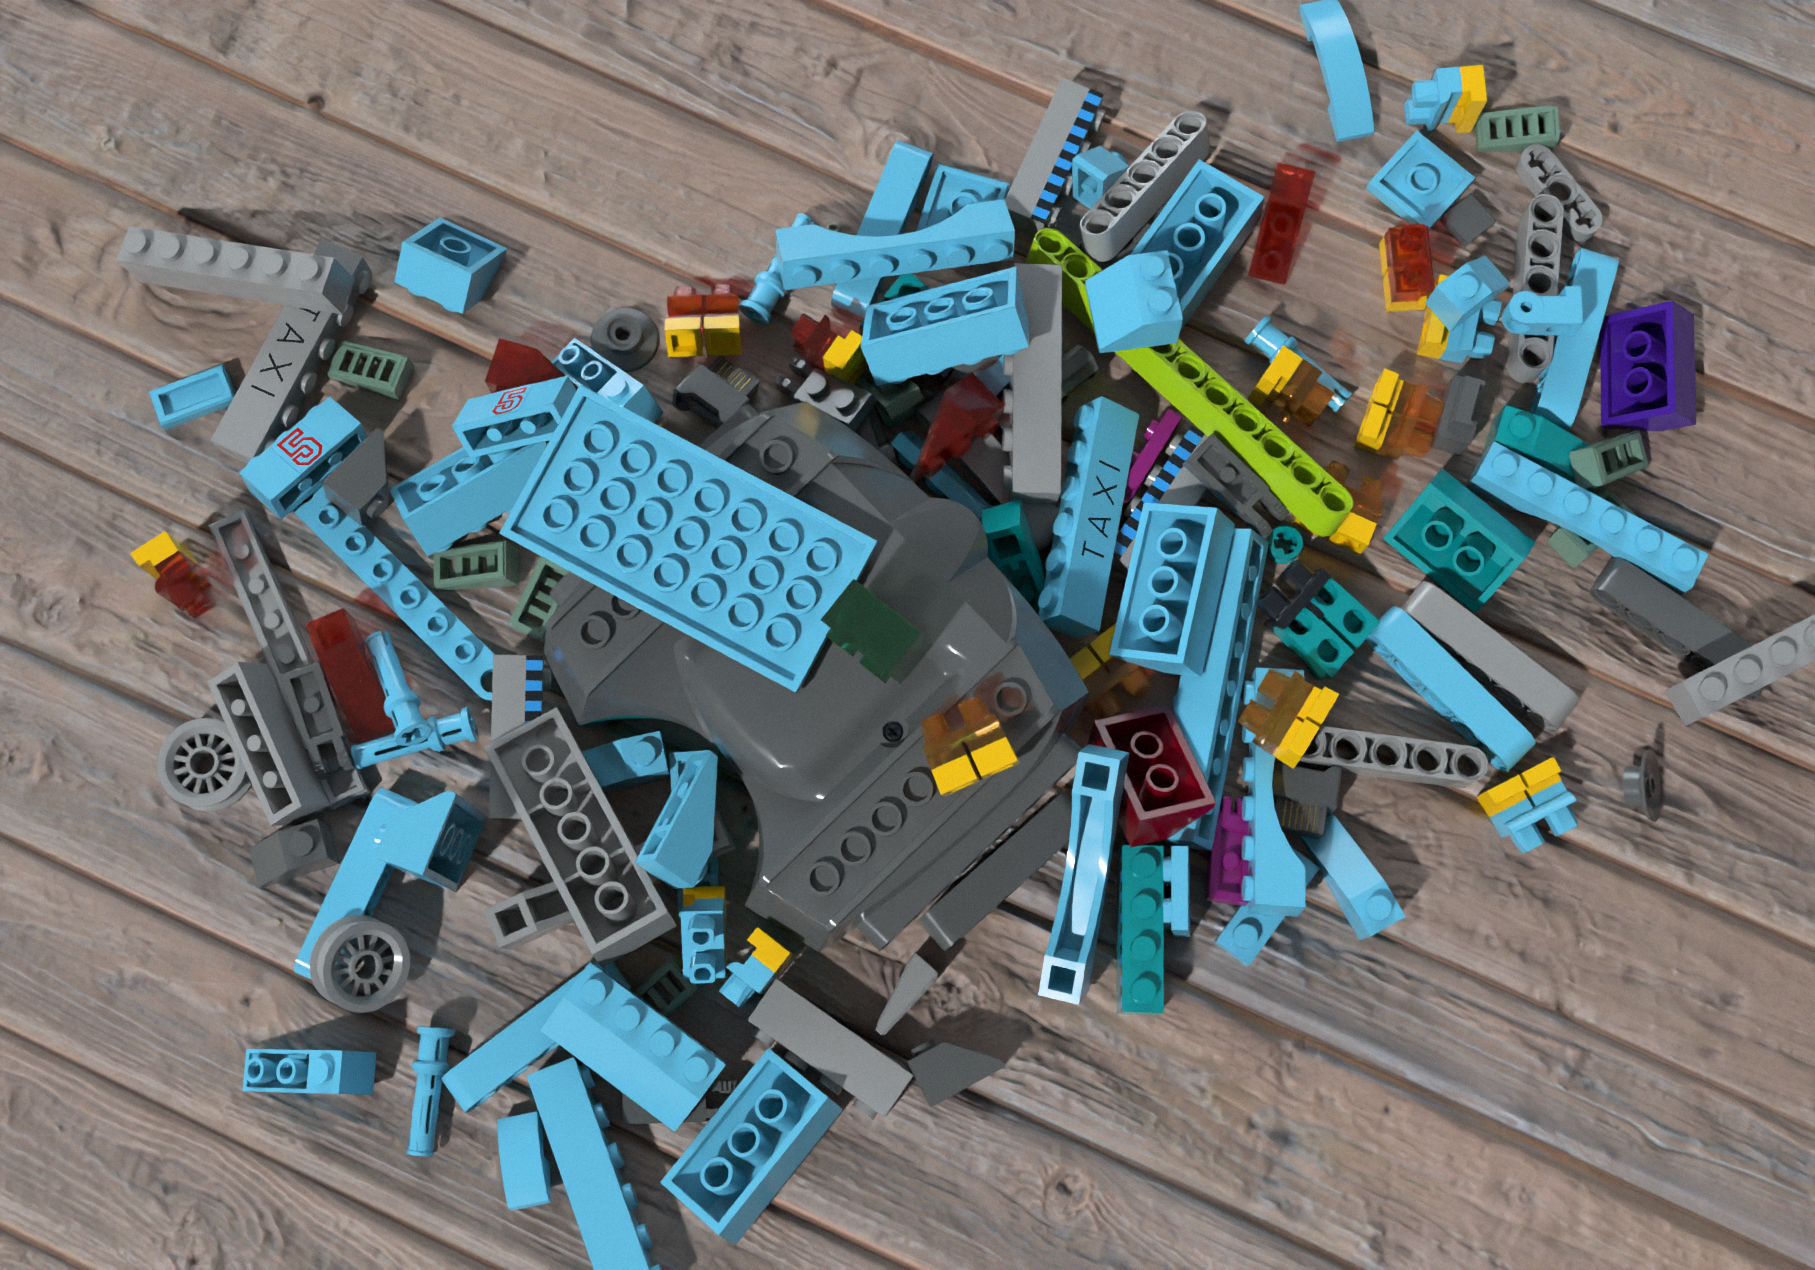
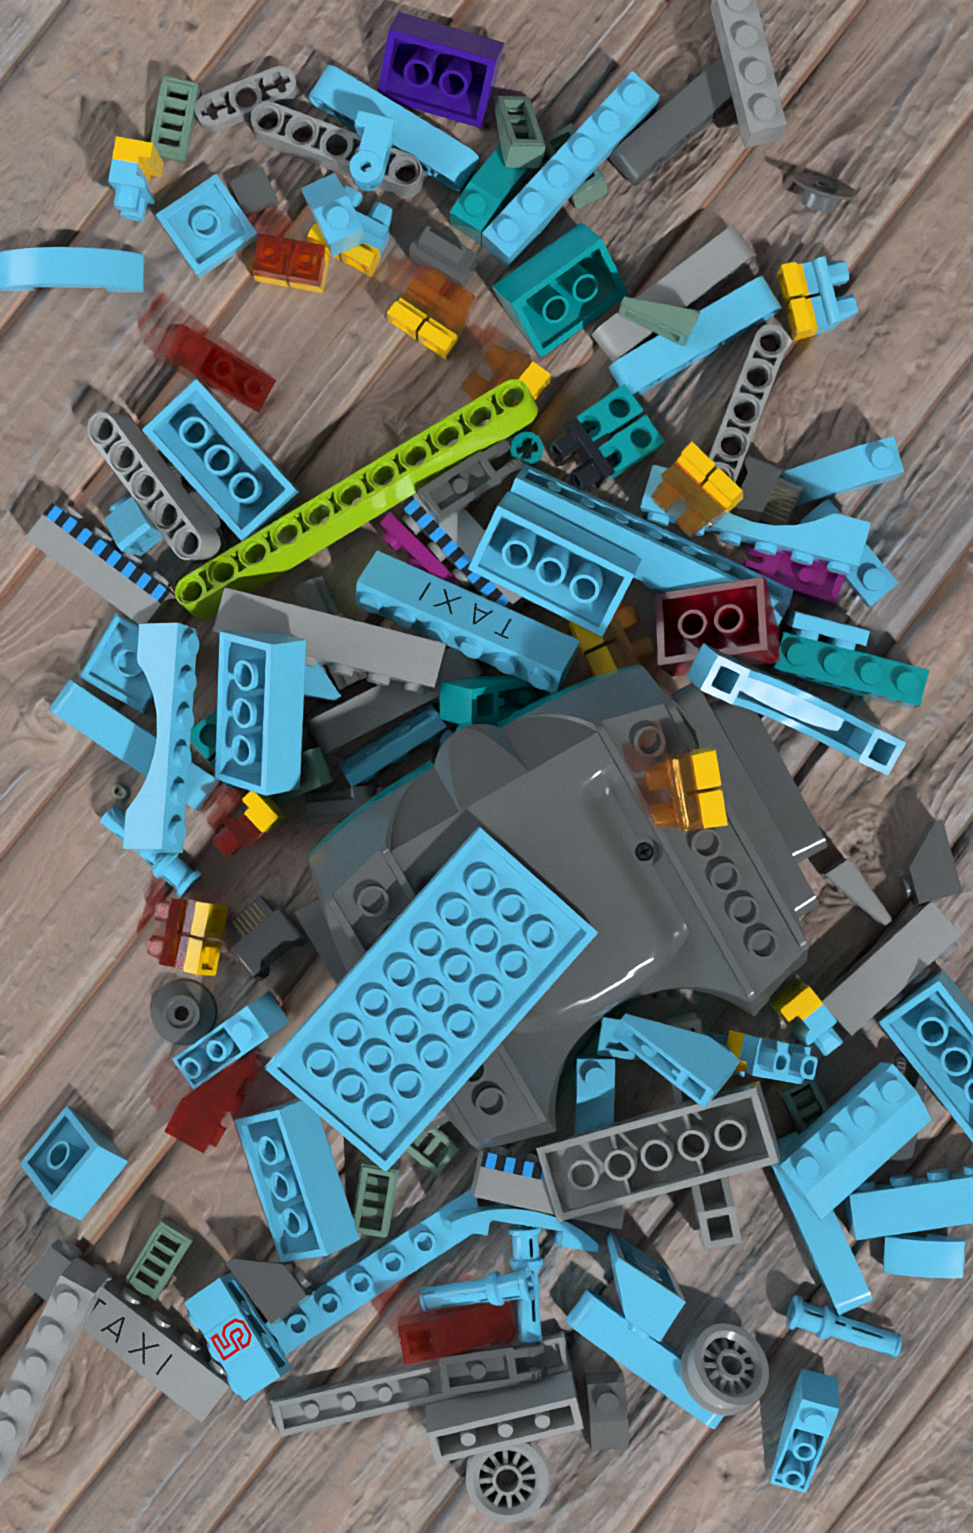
camera: 75 degrees left, 10 degrees up
(177, 573) = (325, 1472): clear red hips -> none
(193, 397) = (147, 1430): medium azure tile -> none
(469, 666) = (478, 1219): none -> medium azure slope
(513, 416) = (249, 1128): medium azure brick -> none
(829, 393) = (291, 834): dark grey hinge -> none
(869, 626) = (568, 849): clear green brick -> none
(962, 416) = (351, 723): clear red slope -> none
(1135, 303) = (279, 529): medium azure slope -> none
(1270, 341) = (343, 399): medium azure pin -> none
(1293, 387) = (384, 400): clear orange hips -> none
(1459, 650) = (665, 320): none -> sand green slope

